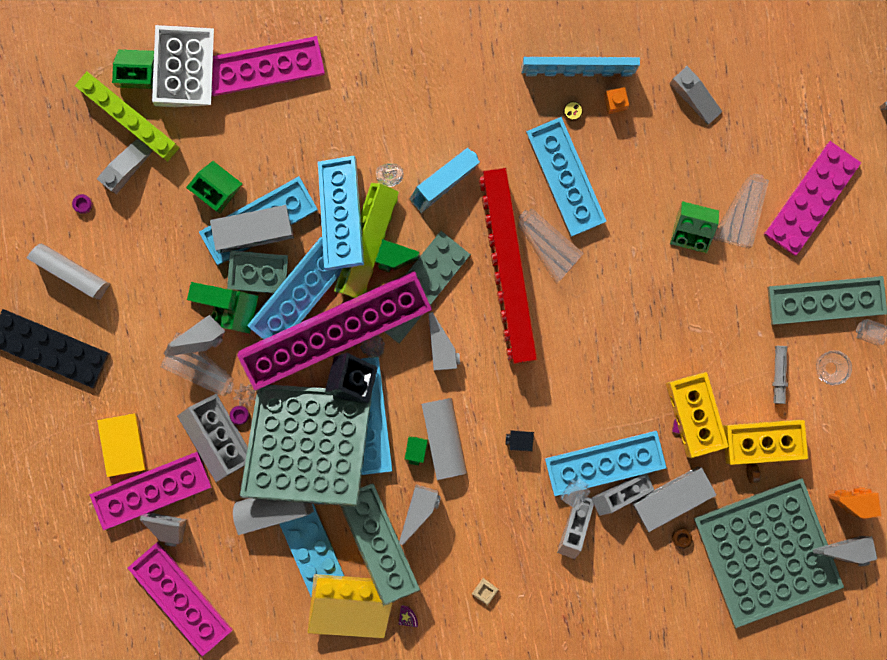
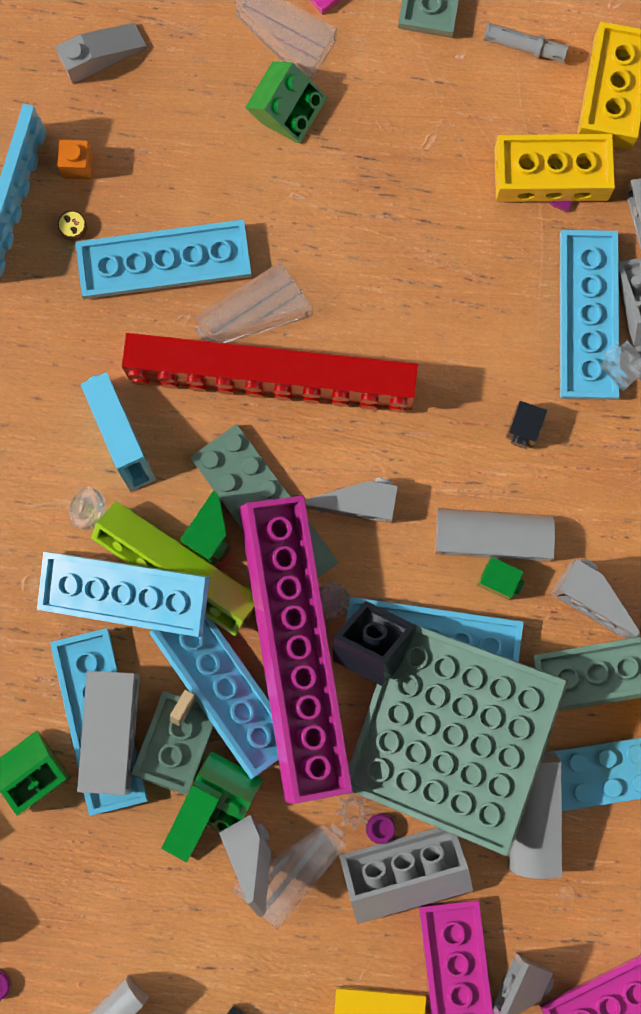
camera: 70 degrees left, 5 degrees down
(278, 270) = (182, 708): none -> tan tile

